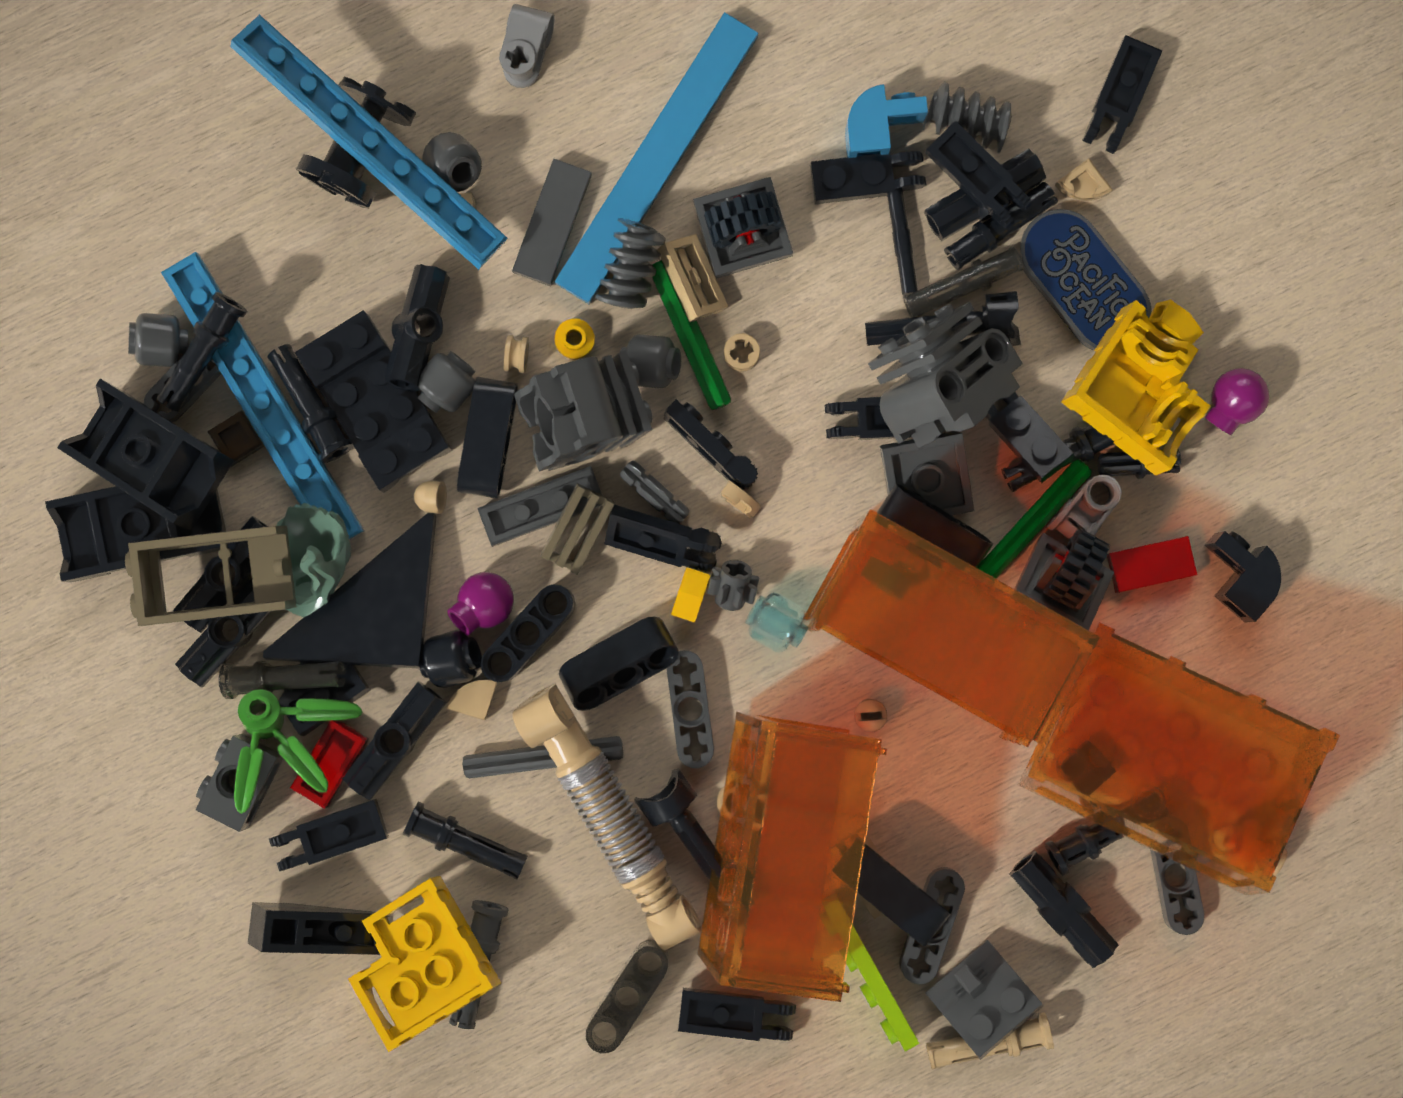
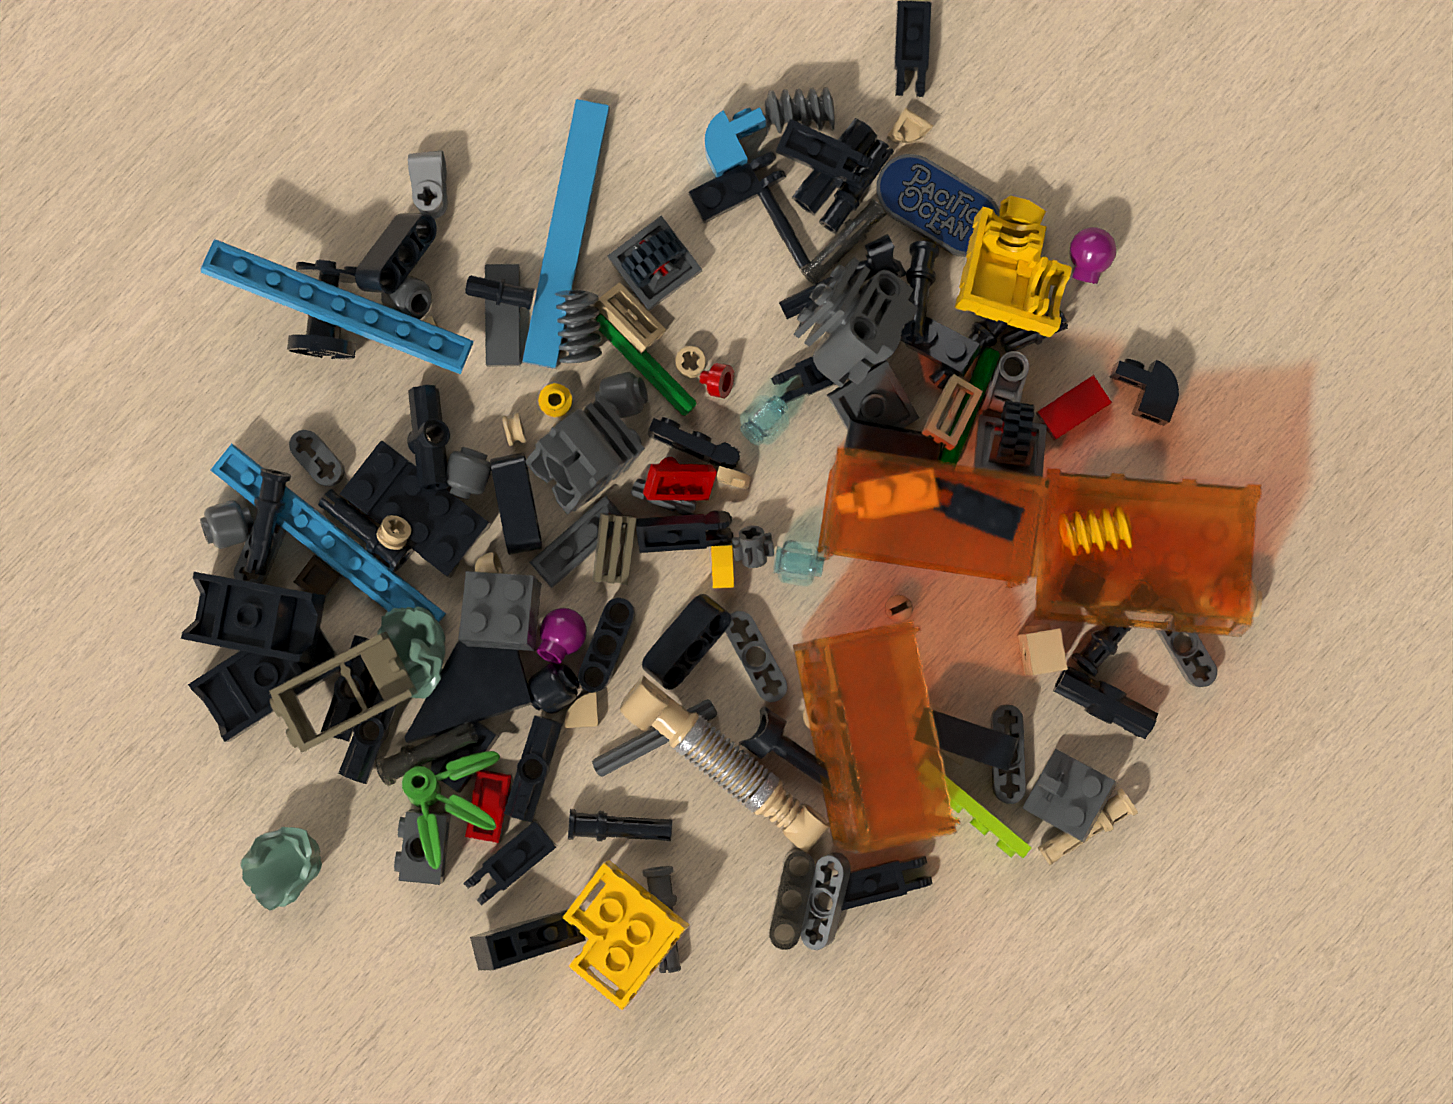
camera: 25 degrees left, 0 degrees up
(71, 743) = (281, 866): none -> sand green hair
(277, 307) = (310, 463): none -> dark grey beam
(345, 411) = (393, 540): none -> tan bush
(422, 550) = (500, 611): none -> dark grey brick
(458, 107) = (396, 253): none -> black beam
(558, 194) = (499, 292): none -> black axle
(677, 481) = (679, 481): none -> red tile
(680, 1007) = (835, 890): none -> dark grey beam
(765, 384) = (718, 380): none -> red tile
(799, 448) = (764, 420): none -> clear light blue head
(912, 588) = (892, 495): none -> orange hinge
(990, 538) = (939, 434): none -> tan tile
(1001, 640) = (980, 511): none -> black hinge
(1014, 824) = (1042, 650): none -> tan brick
(1035, 354) = (920, 278): none -> black pin
(1126, 712) = (1095, 530): none -> yellow piece

